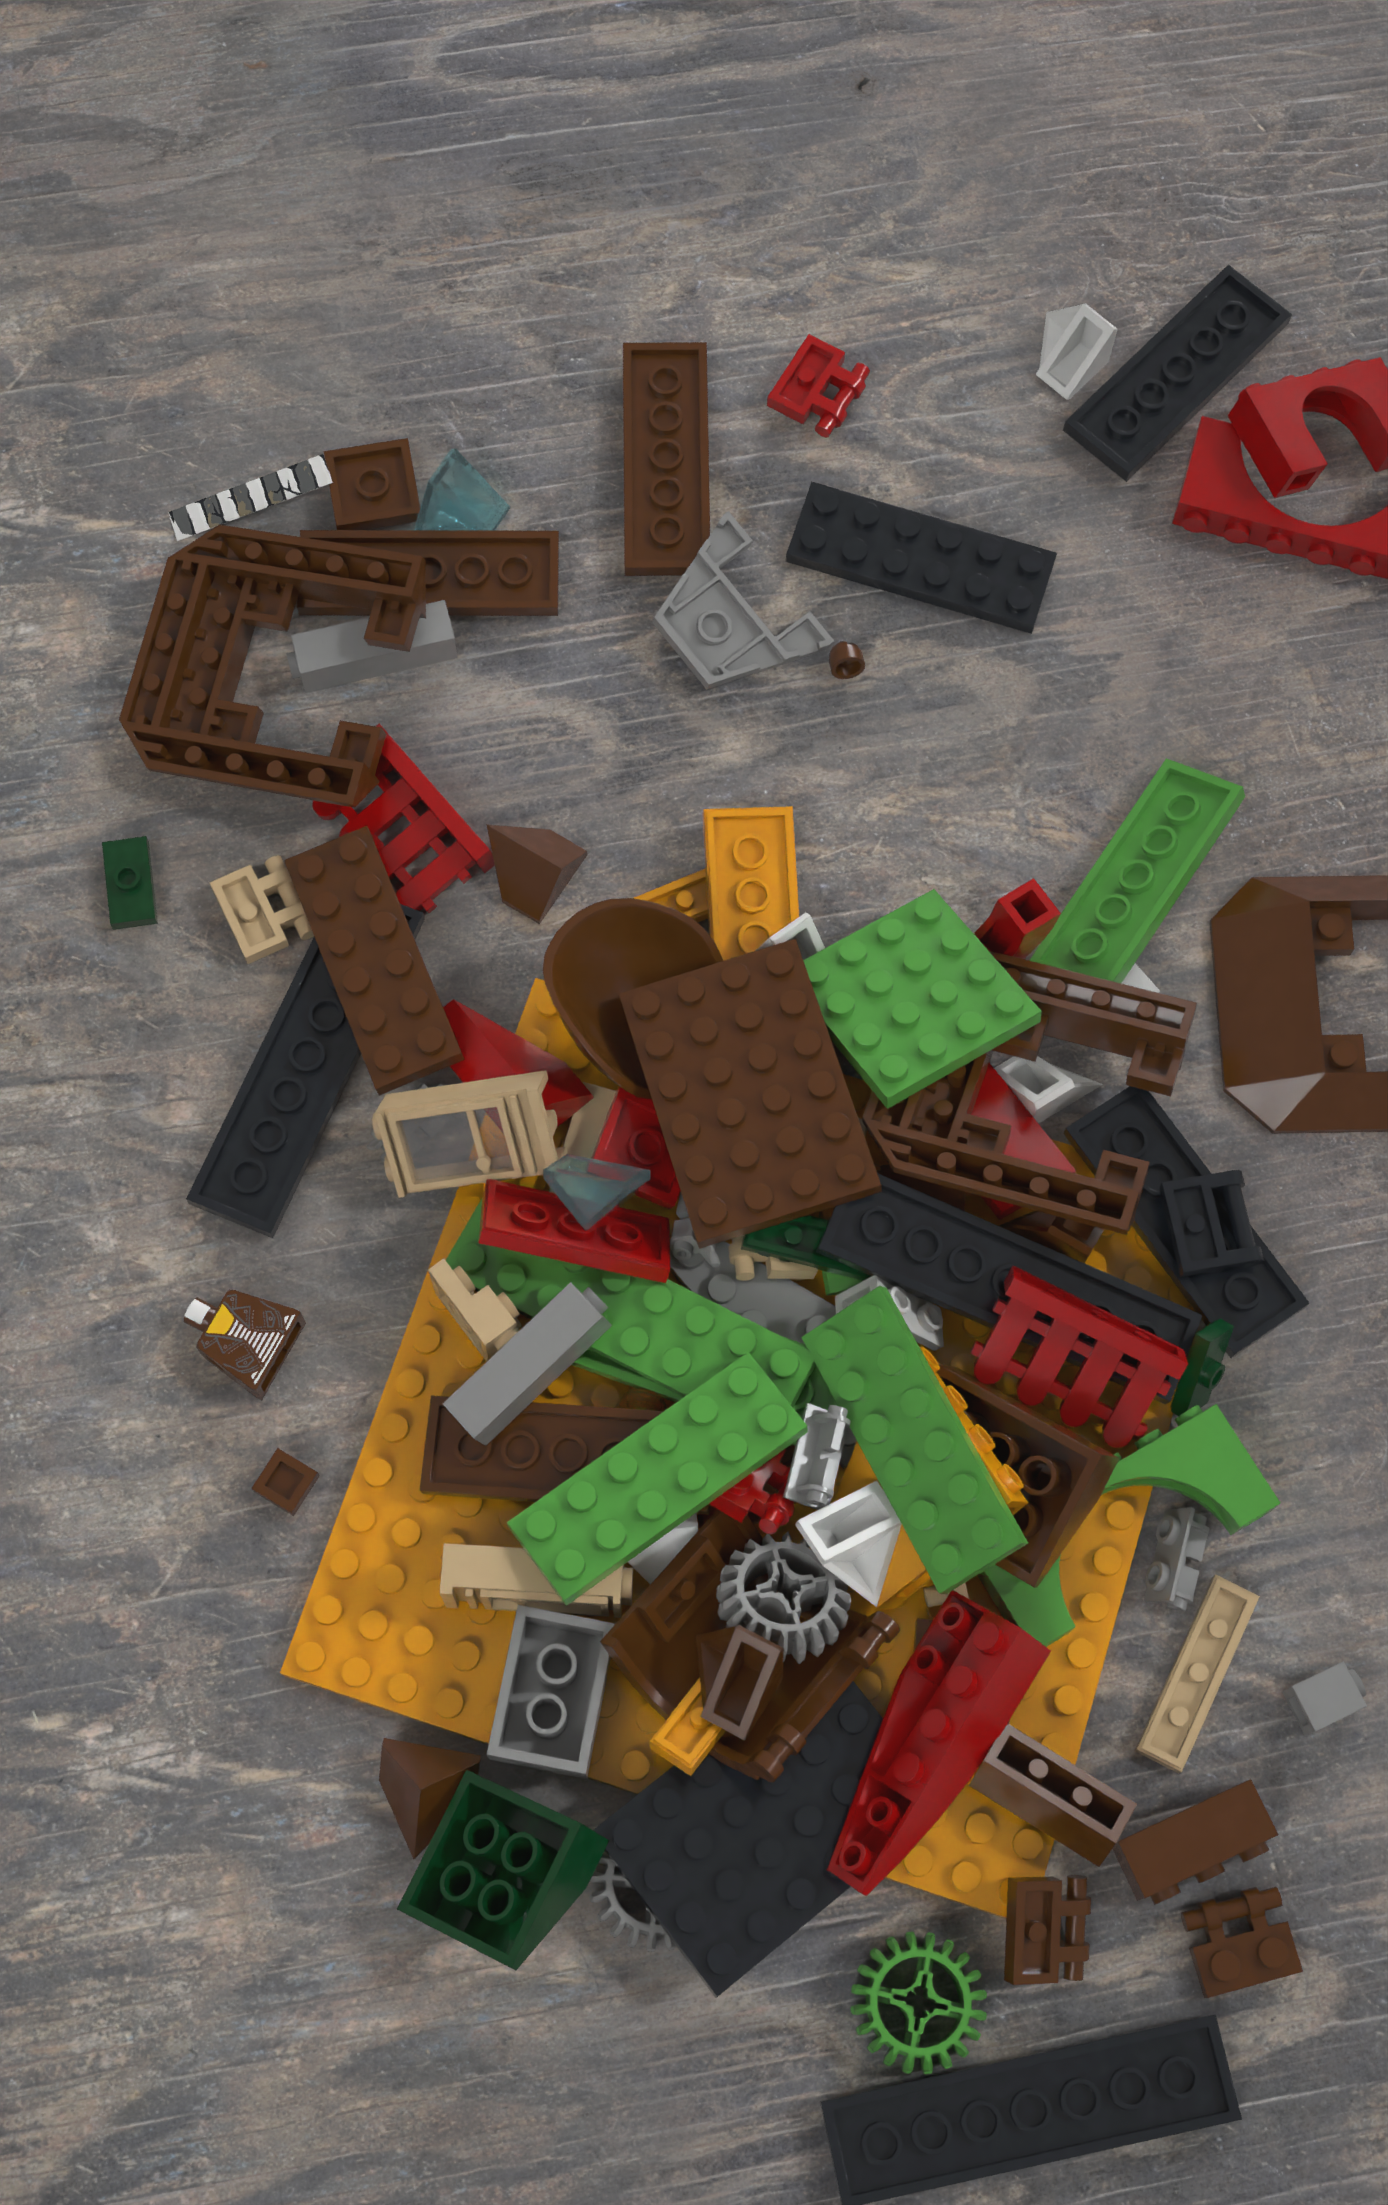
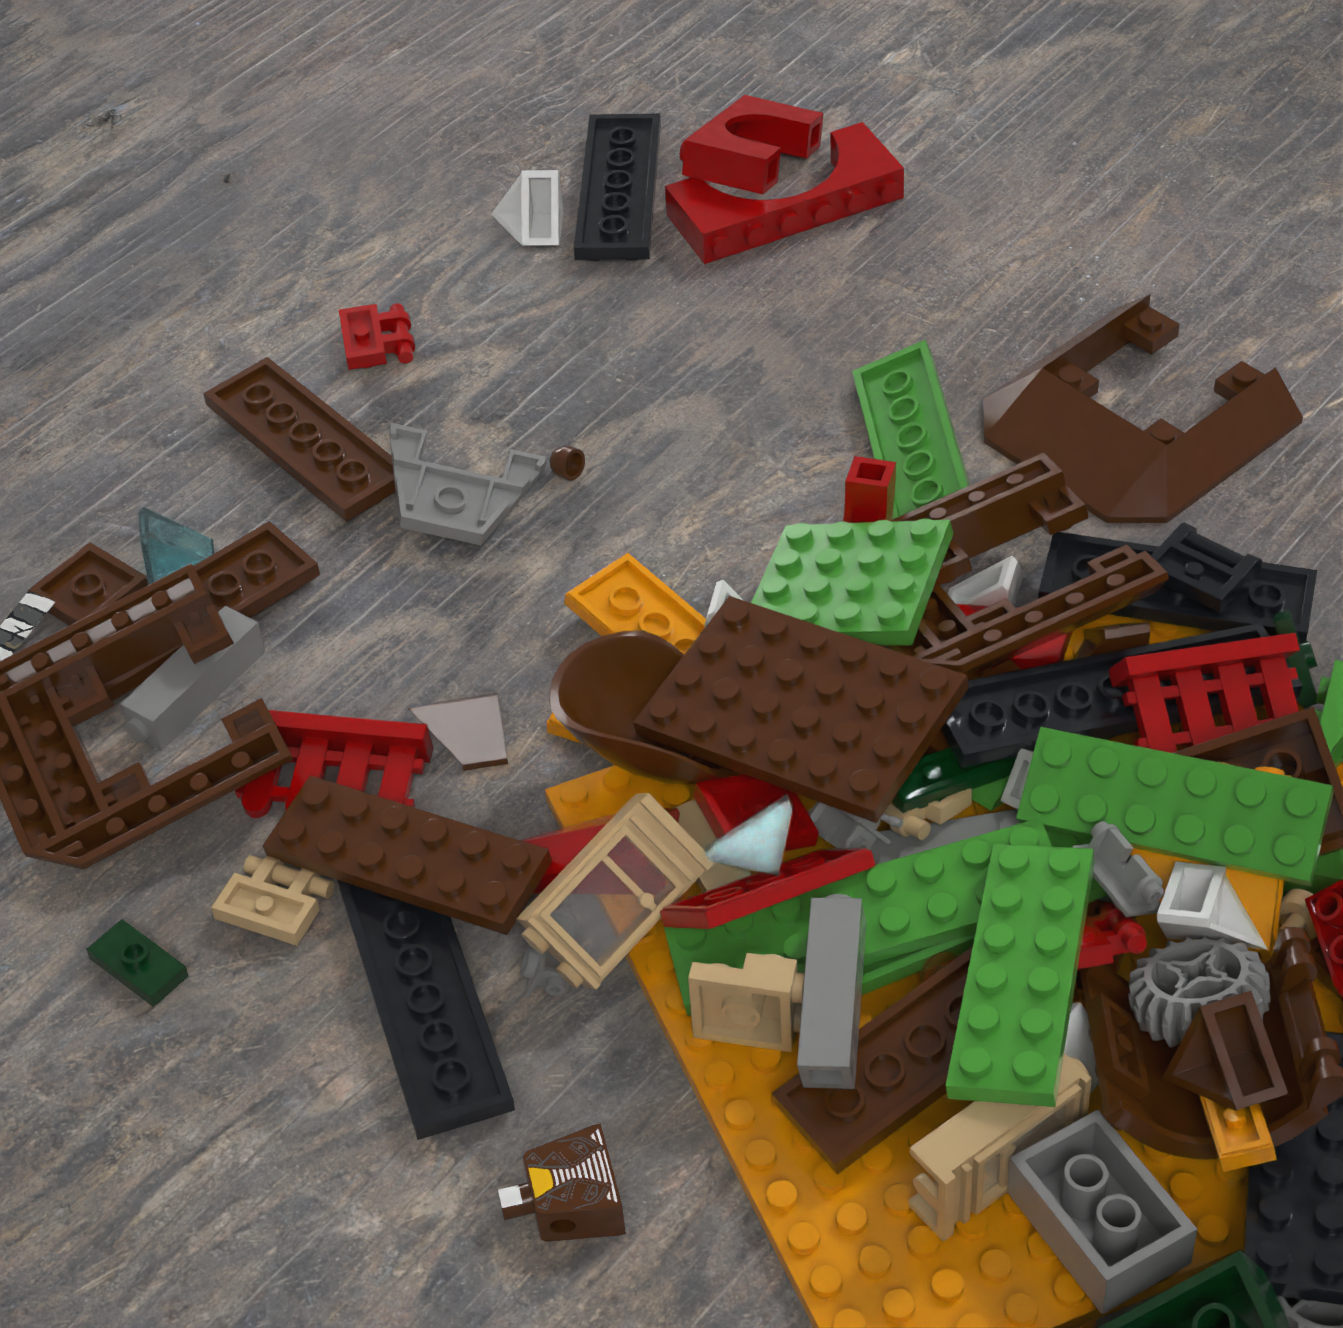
camera: 35 degrees left, 25 degrees down
(285, 1482) = (712, 1265): reddish brown plate -> none
(921, 557) = (553, 380): black plate -> none

